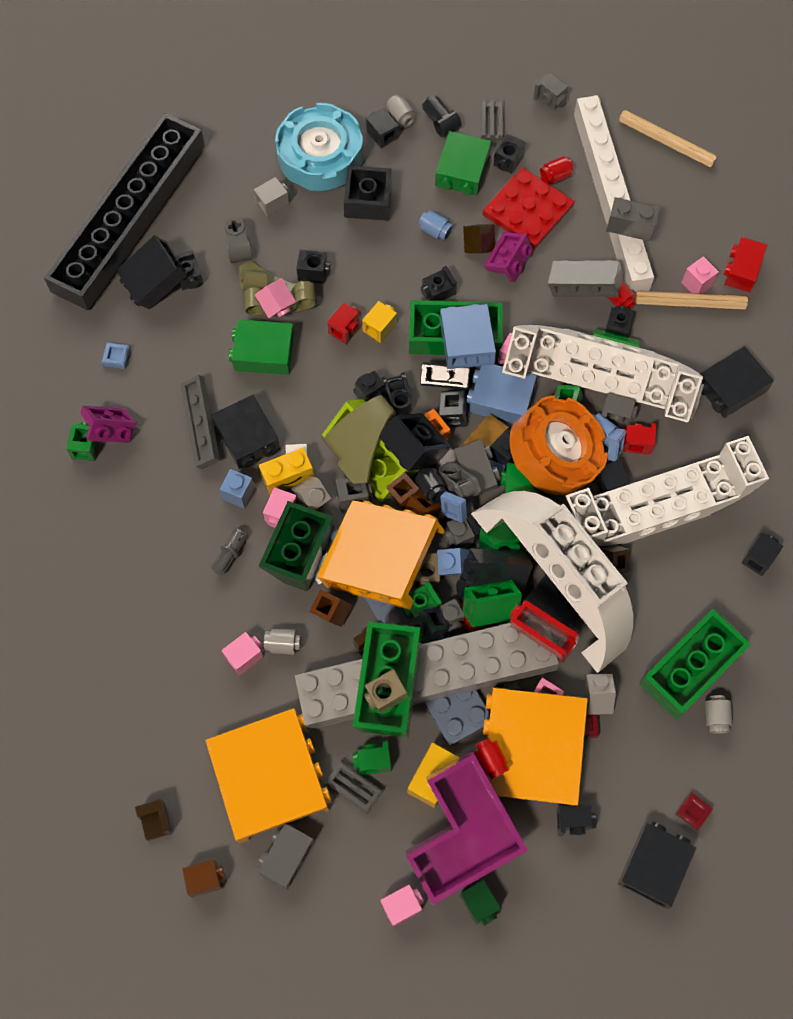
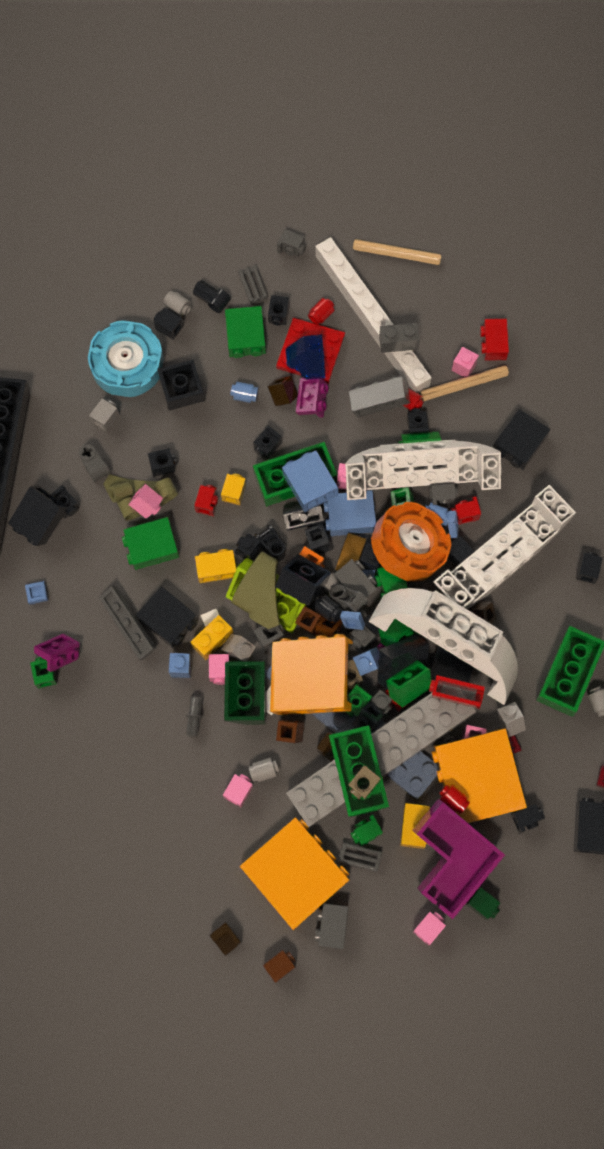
camera: 20 degrees left, 5 degrees up
(323, 395) = (215, 566): none -> yellow brick
(520, 208) = (307, 357): none -> clear blue slope

